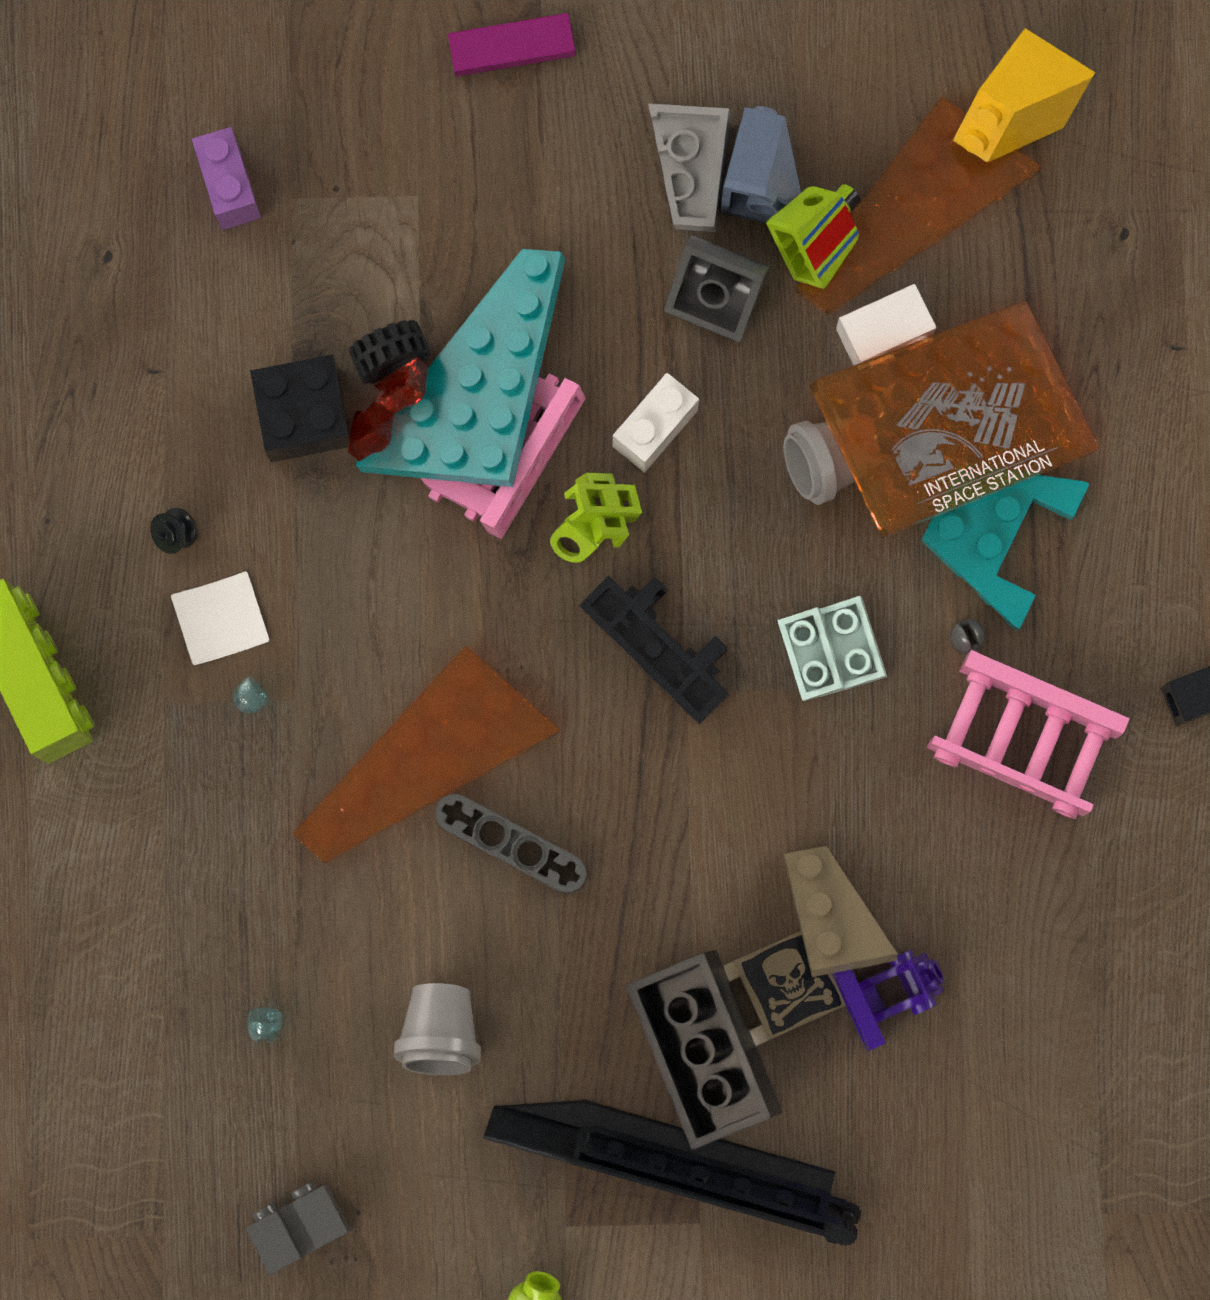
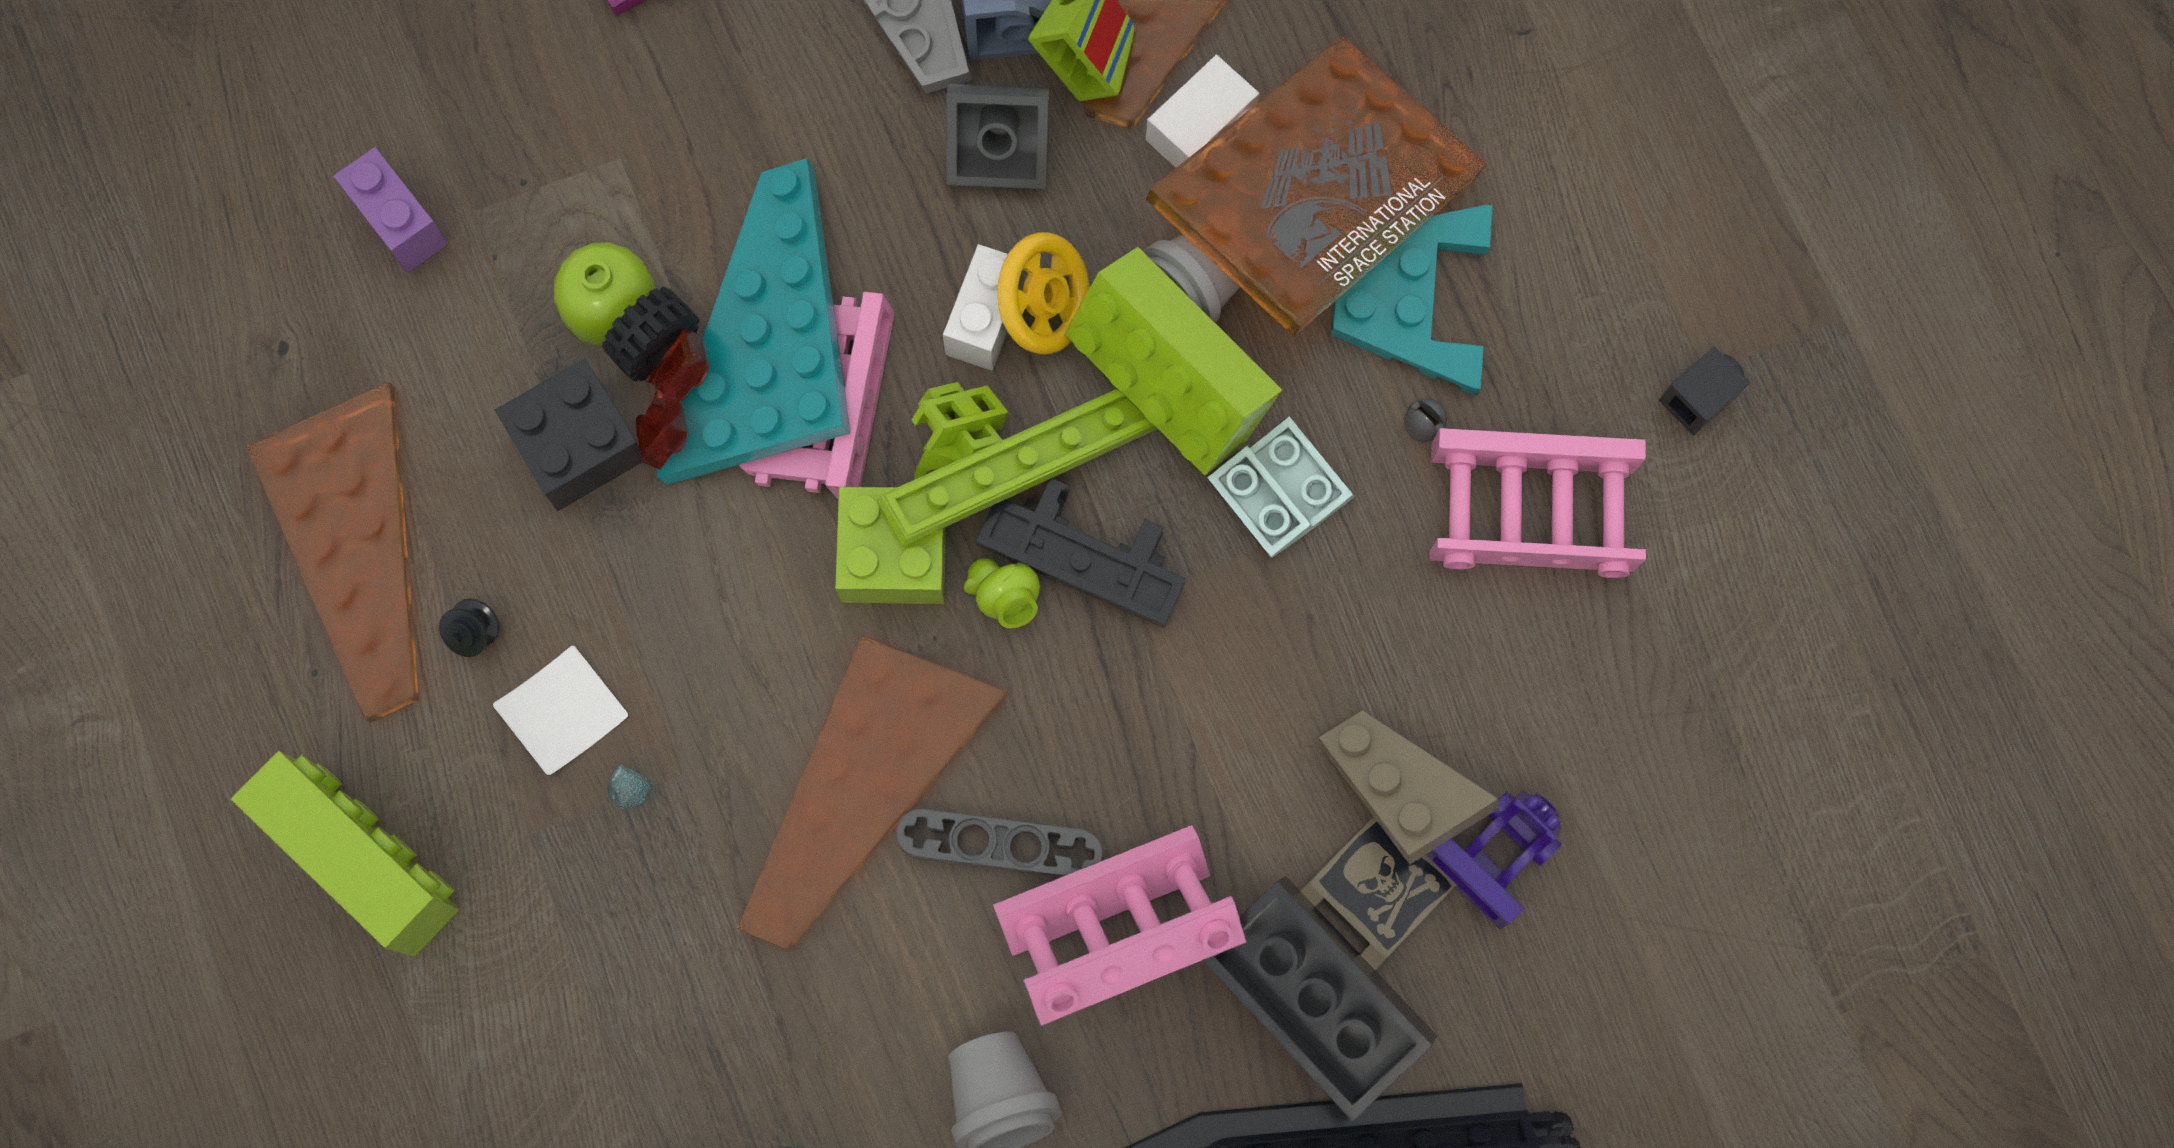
camera: 25 degrees left, 5 degrees down
(108, 413) = (345, 524): none -> clear orange wing
(365, 299) = (596, 288): none -> lime cylinder
(513, 584) = (875, 564): none -> lime brick
(574, 909) = (1106, 890): none -> bright pink fence
(586, 652) = (1004, 591): none -> lime animal
(638, 556) = (1012, 466): none -> lime tile
(704, 429) = (1043, 291): none -> yellow plate
(781, 520) = (1171, 360): none -> lime brick

